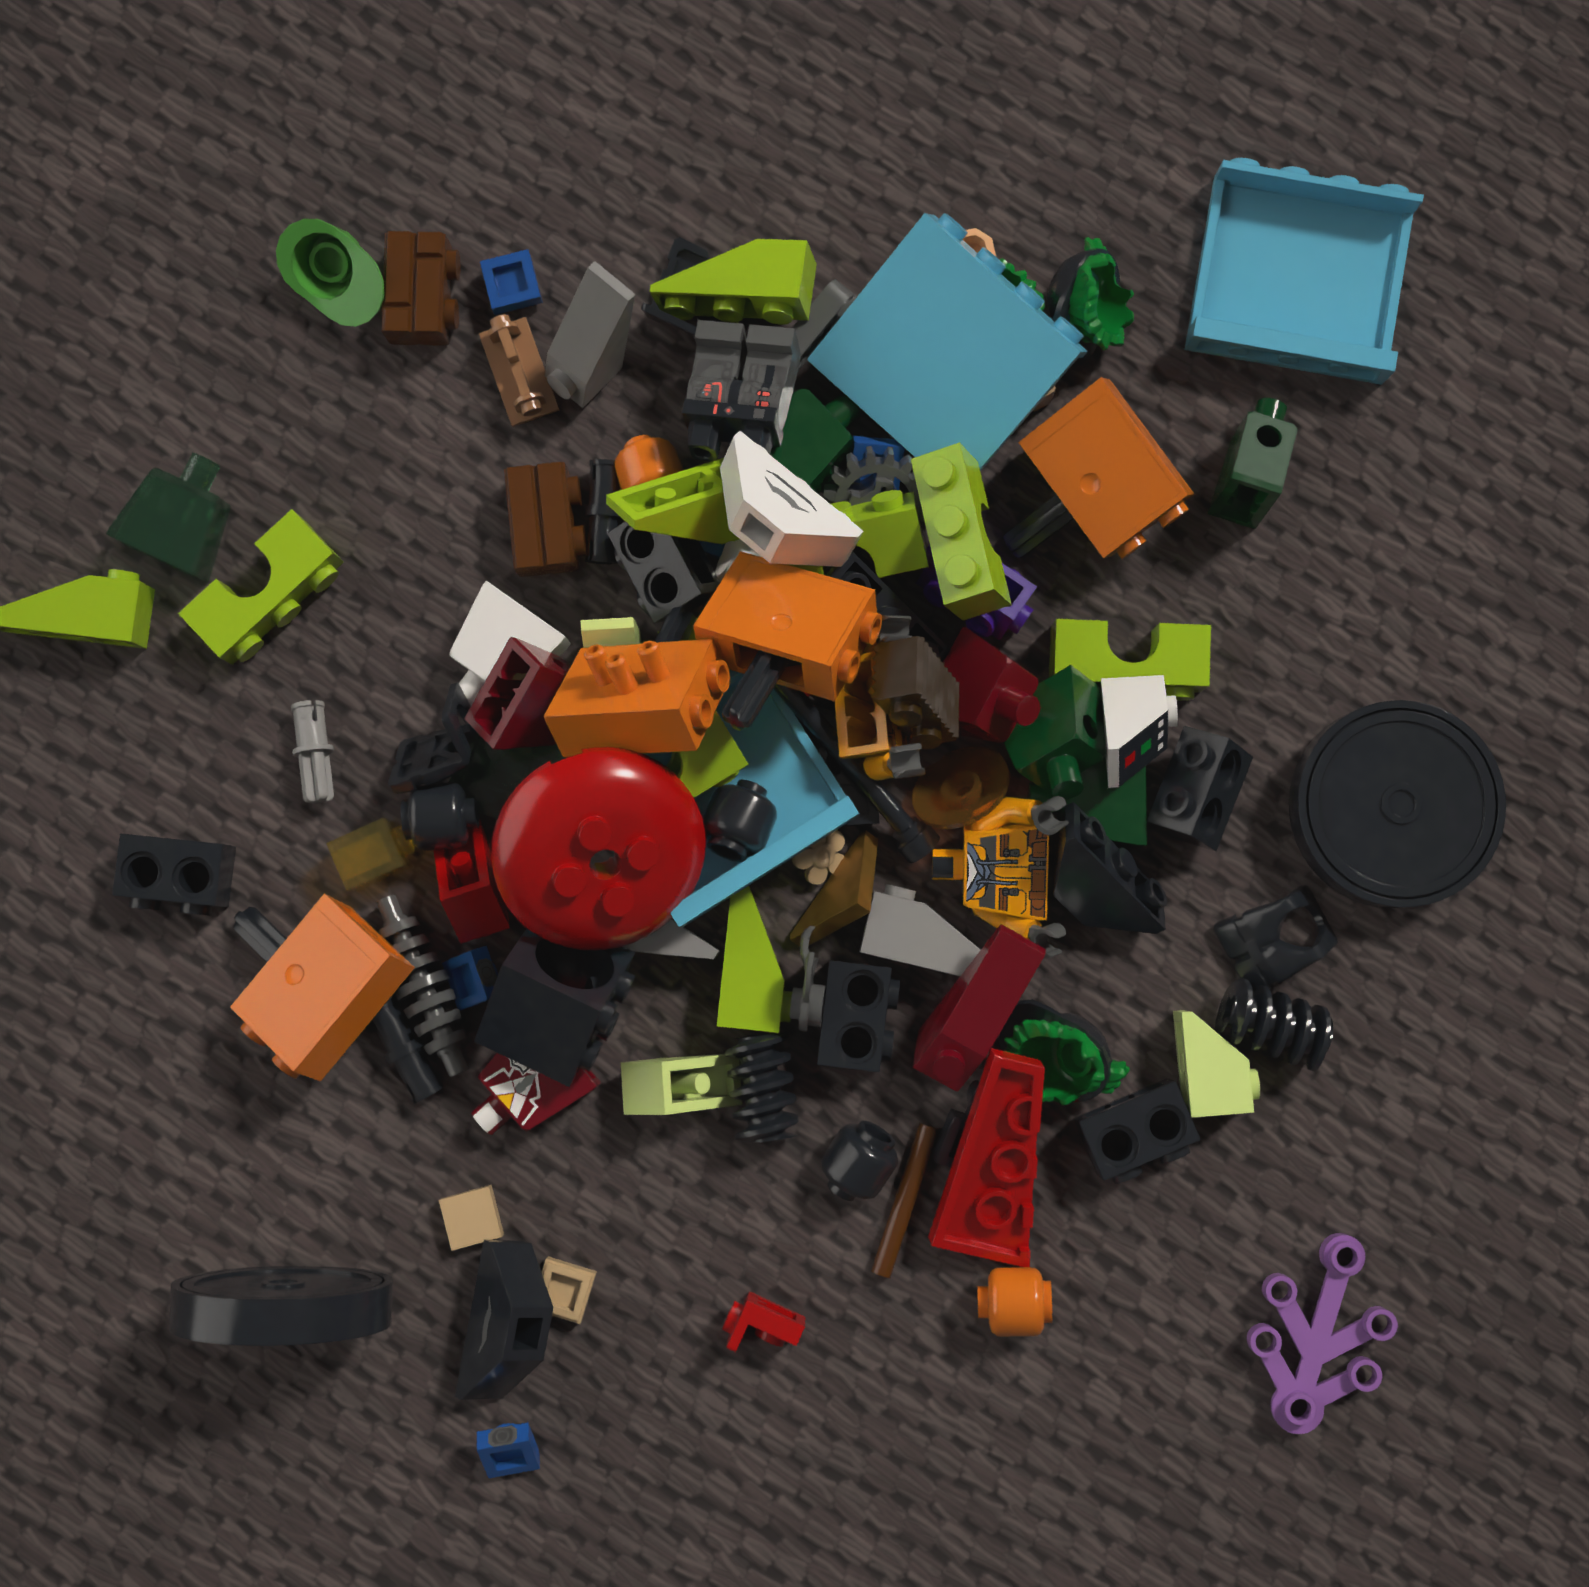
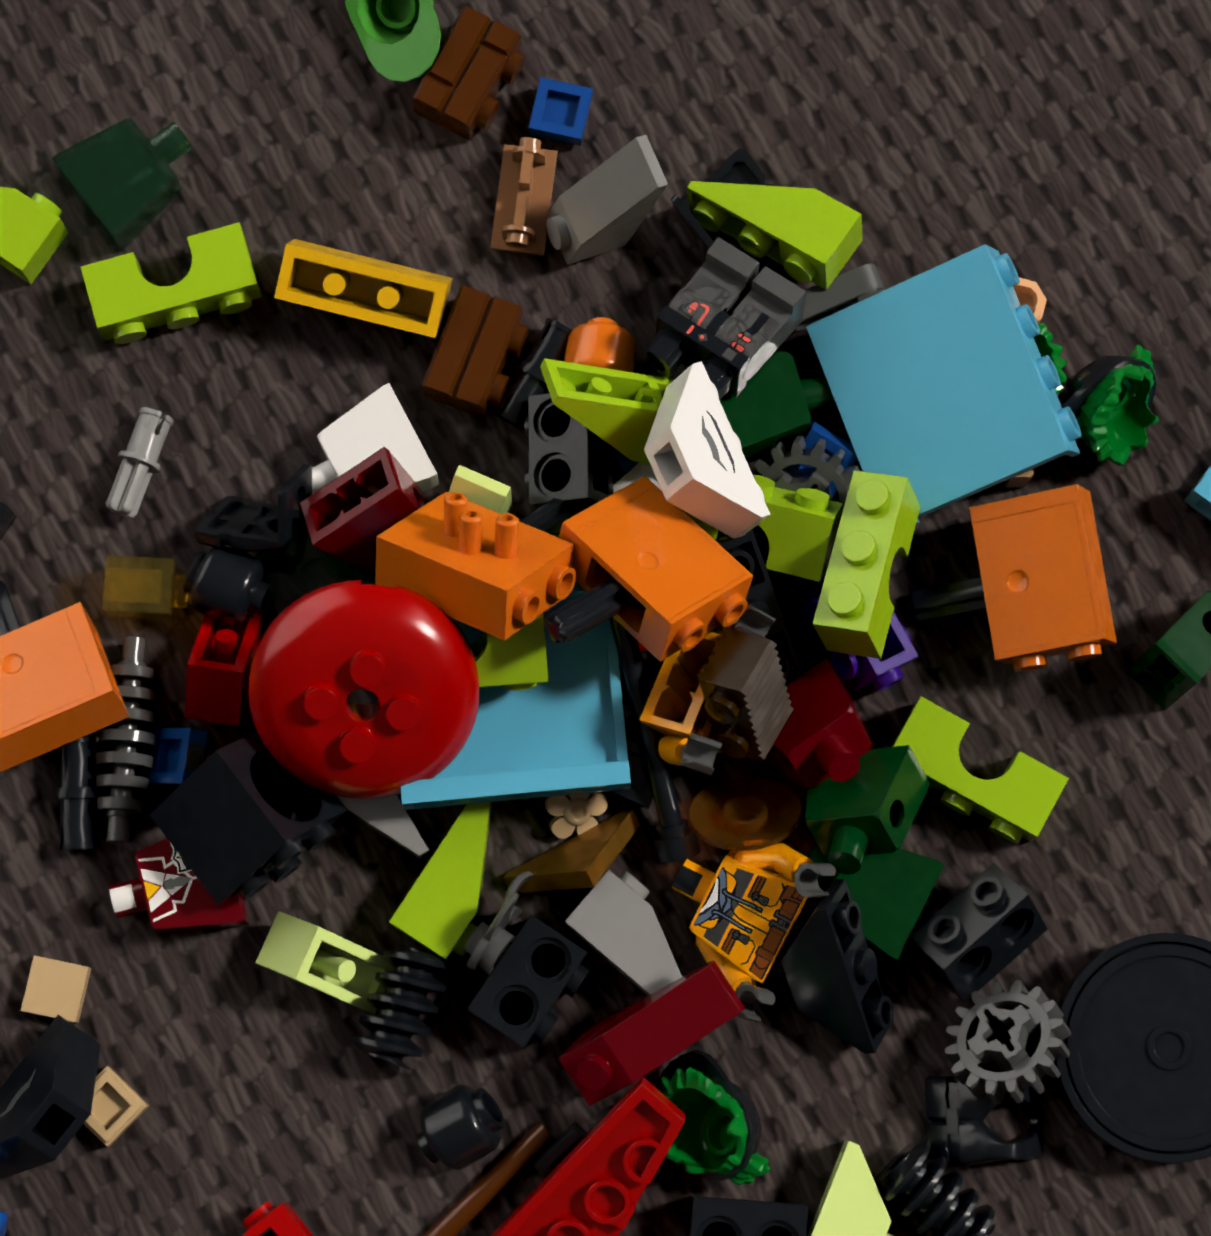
camera: 20 degrees right, 5 degrees down
(423, 512) = (363, 288): none -> yellow brick
(739, 820) = (512, 732): black head -> none
(1135, 723) = (944, 835): white slope -> none
(1281, 845) = (1033, 1030): none -> dark grey gear

